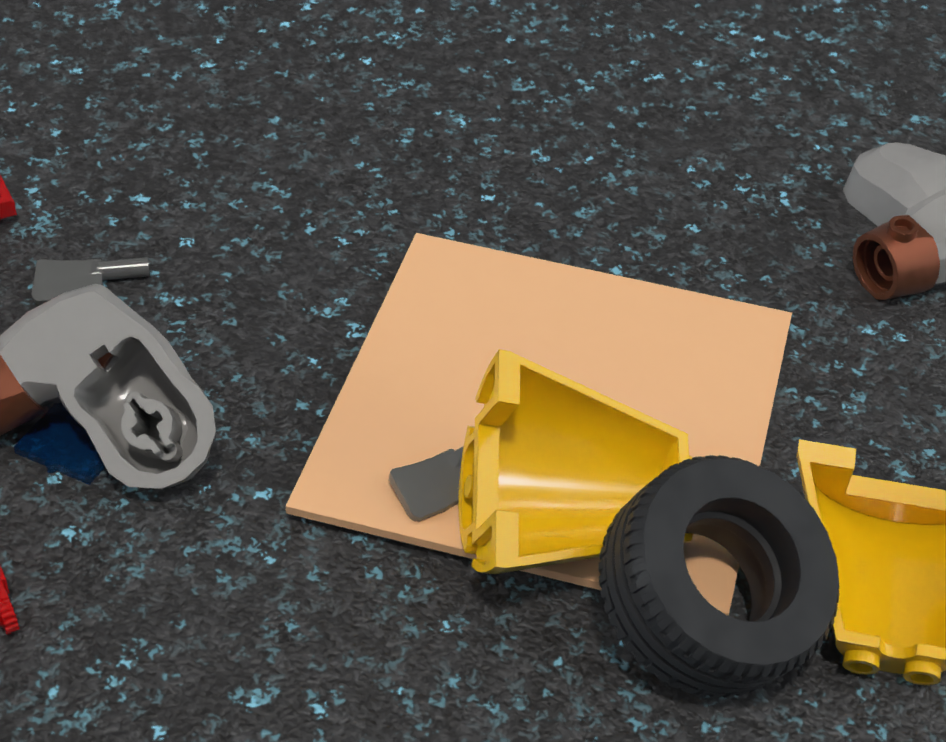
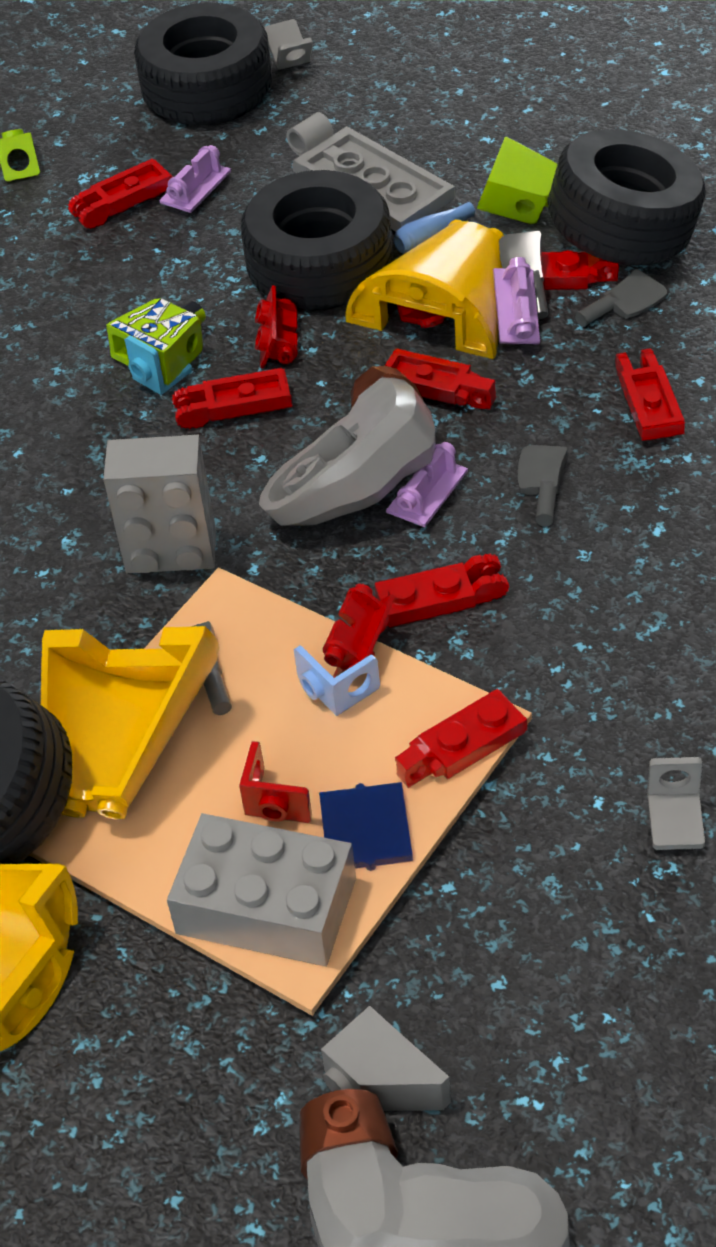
camera: 115 degrees right, 5 degrees up
(249, 522) = (160, 503): none -> light grey brick
(270, 327) = (443, 589): none -> red hinge
(373, 342) = (367, 620): none -> red hinge
(449, 355) = (331, 690): none -> light blue bracket
(473, 262) = (461, 739): none -> red hinge
(491, 144) = (675, 805): none -> light grey bracket
(594, 311) = (370, 820): none -> clear blue piece
(608, 366) = (271, 800): none -> red bracket
(713, 342) = (263, 889): none -> light grey brick
(820, 260) = (381, 1060): none -> light grey slope

